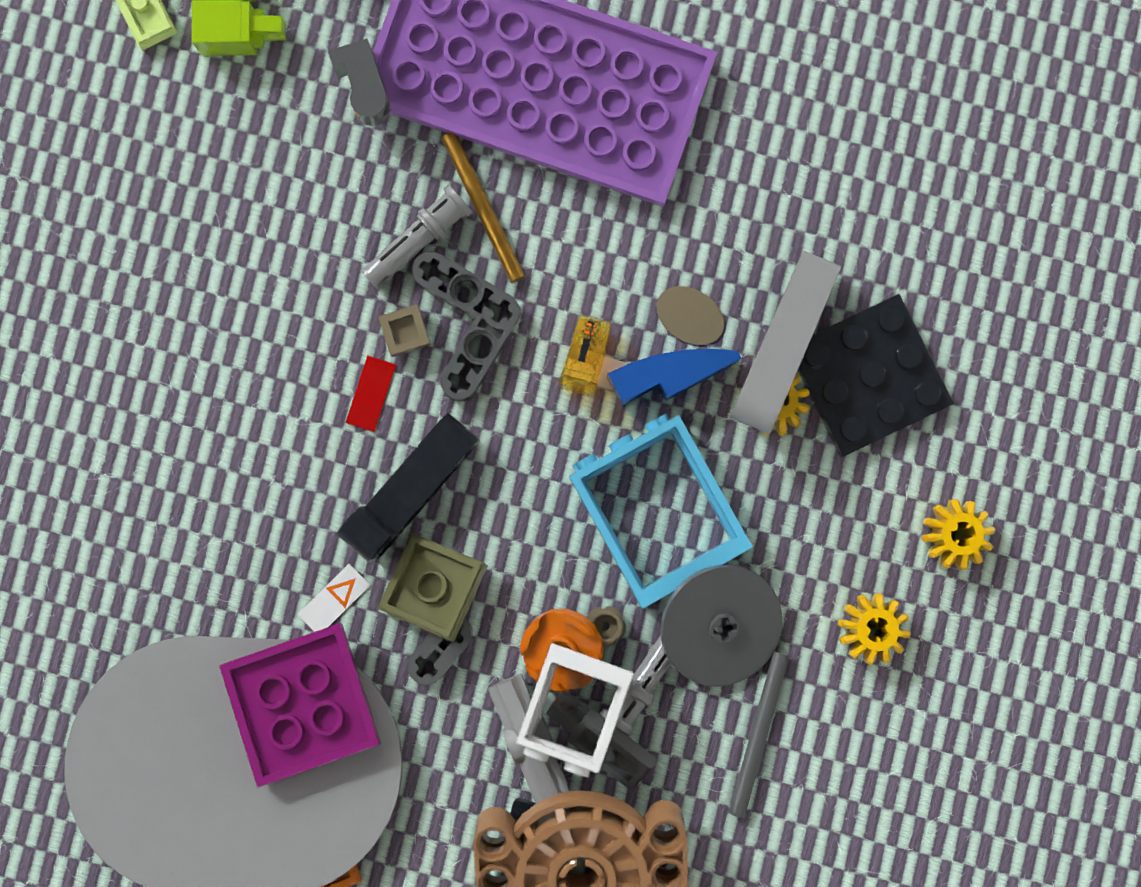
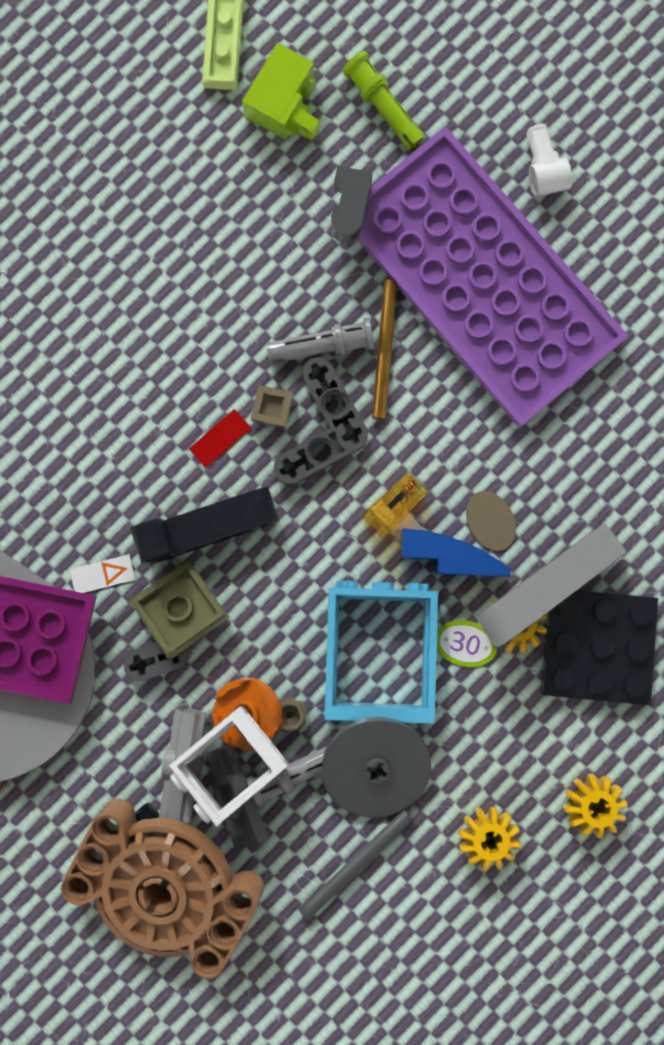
camera: 30 degrees right, 0 degrees up
(737, 452) = (465, 644): none -> sticker

